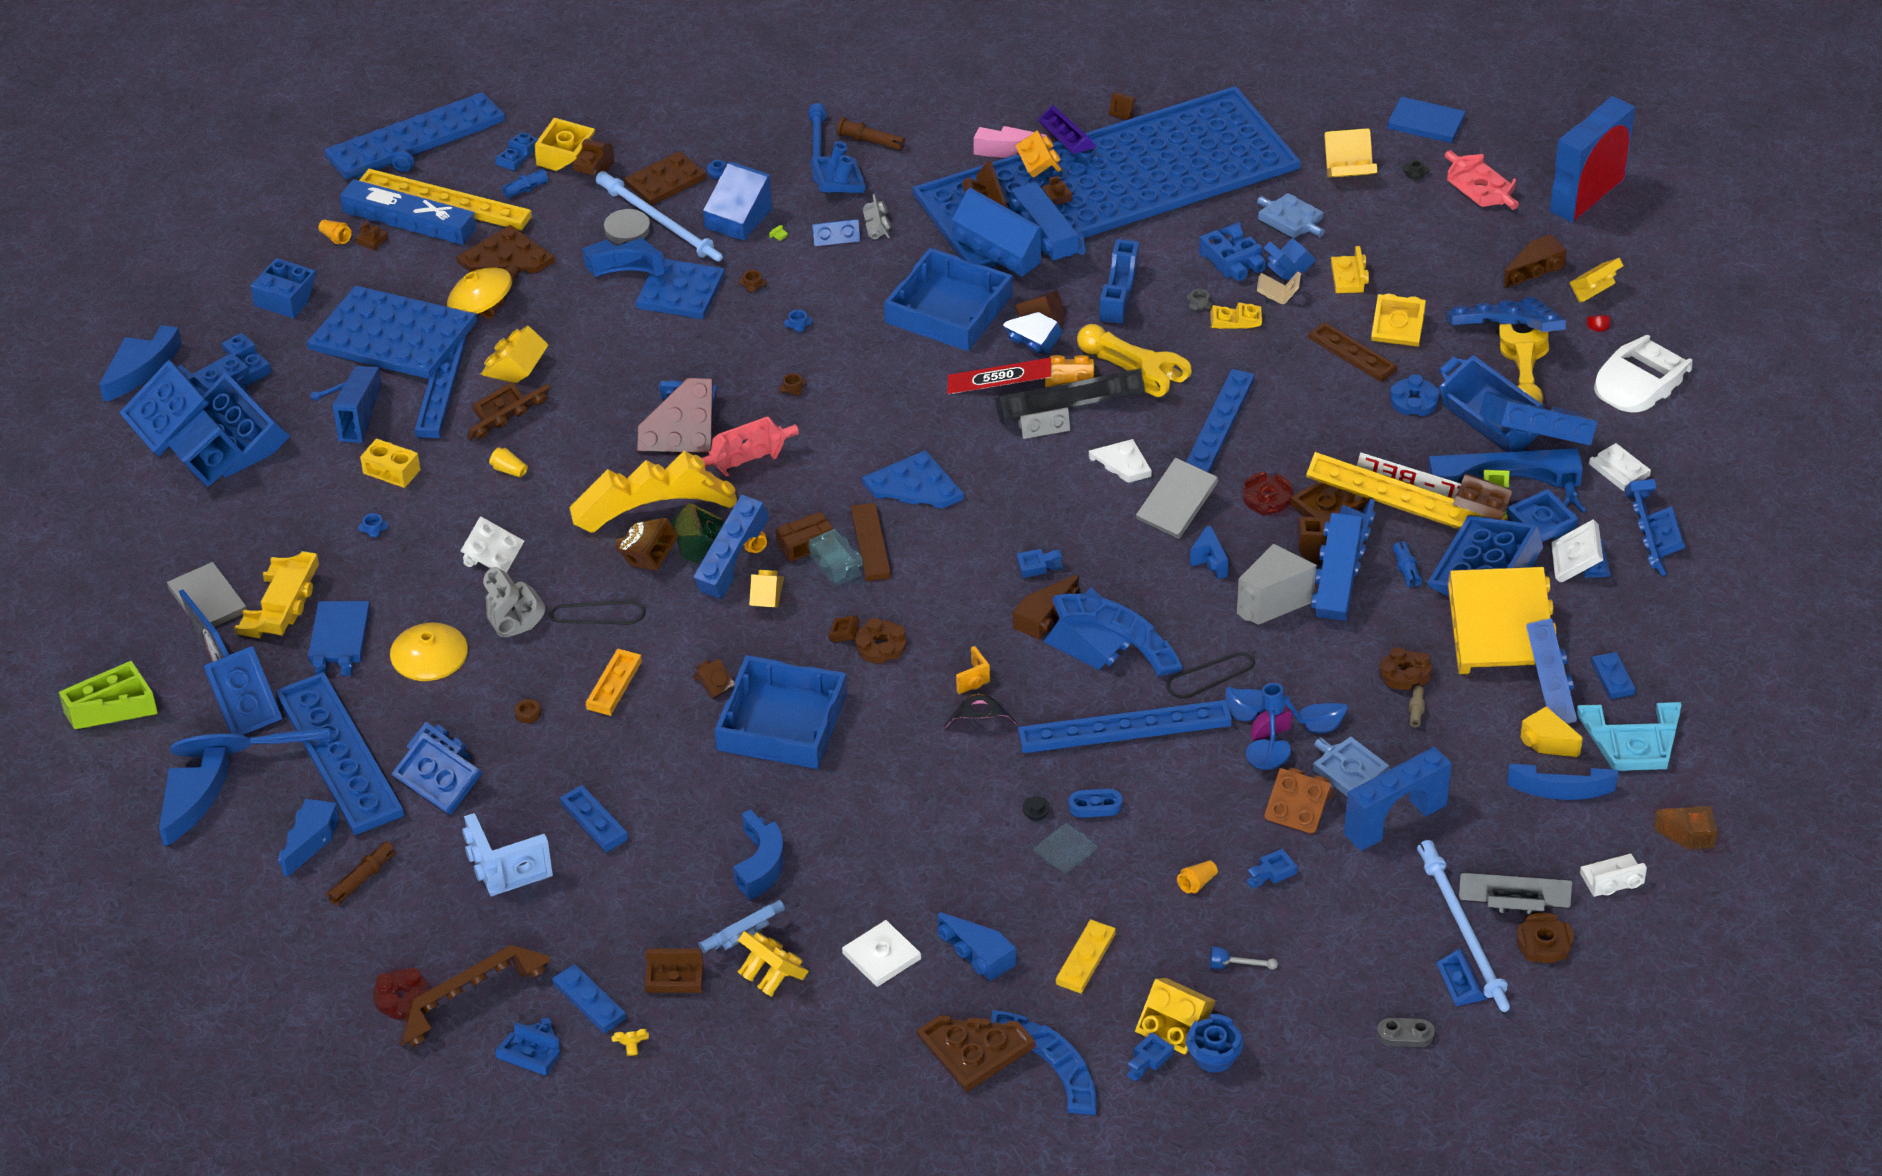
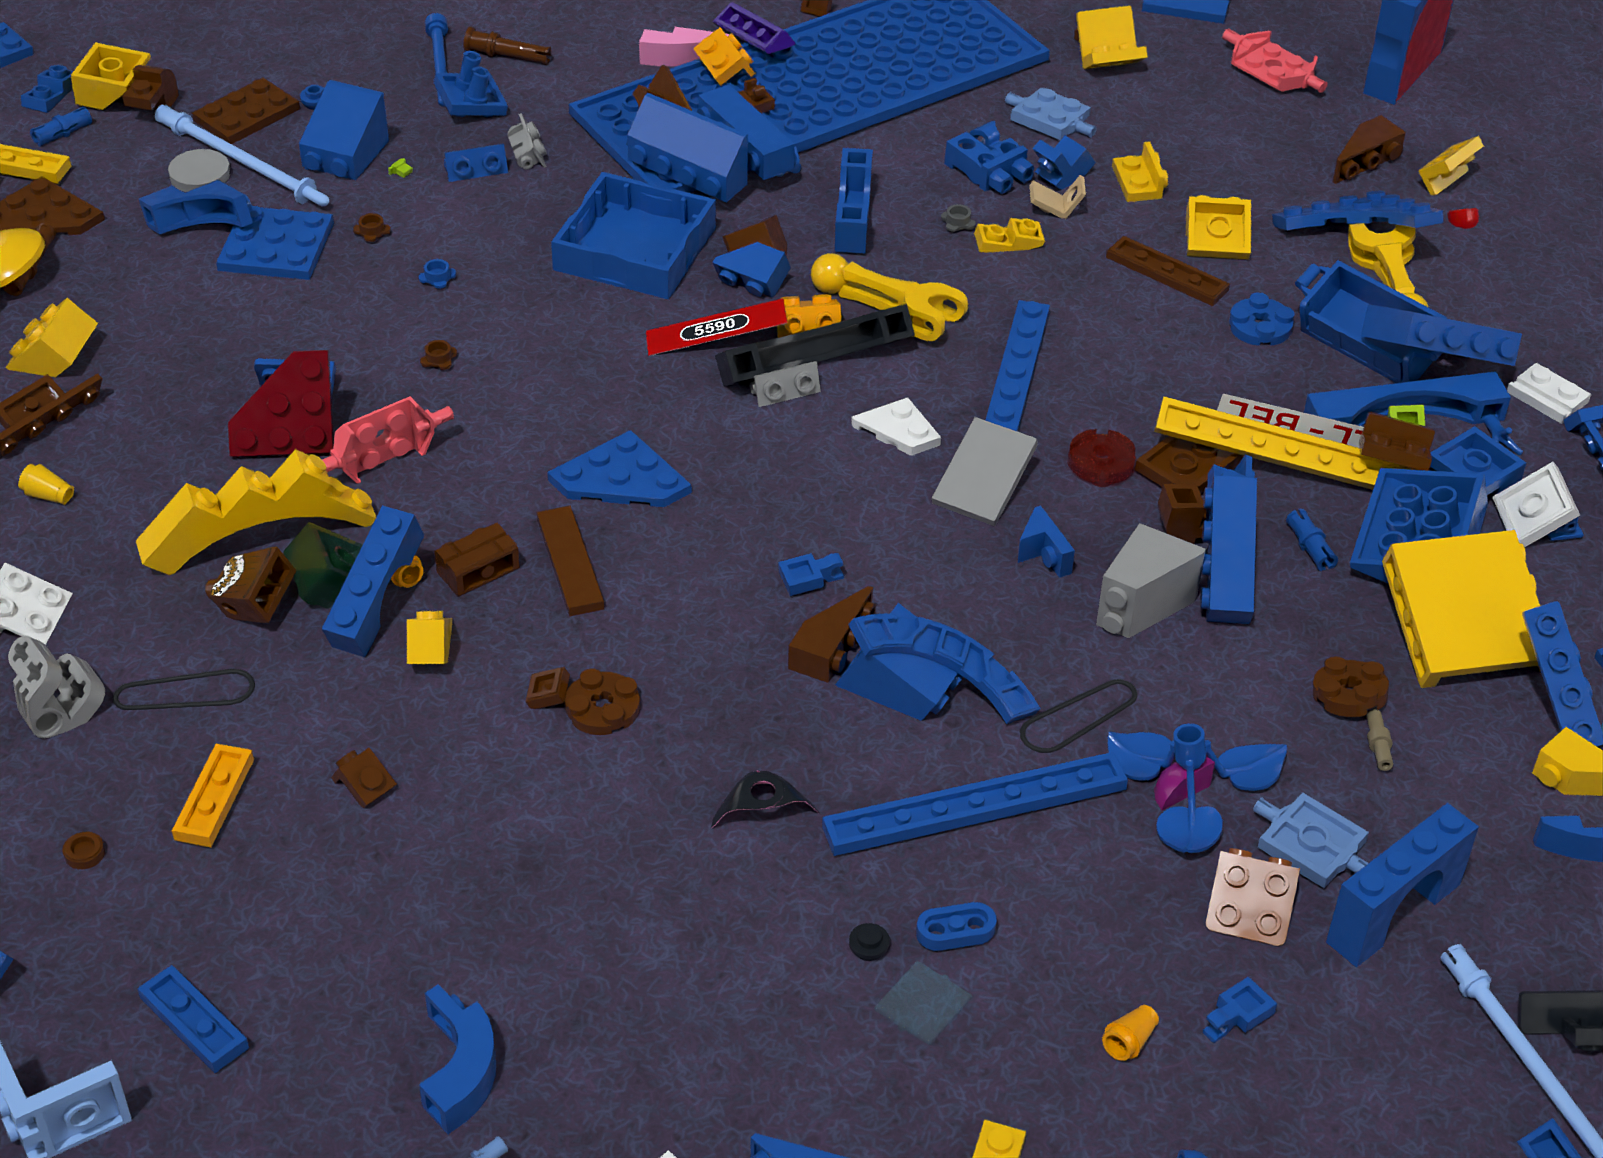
camera: 10 degrees left, 0 degrees up
(781, 712) = (468, 823): blue tile -> none
(835, 557) = (523, 586): clear light blue brick -> none
(973, 677) = (750, 744): light orange bracket -> none
(1415, 169) = (1190, 54): pearl dark grey plate -> none
(1633, 388) = (1531, 291): white slope -> none

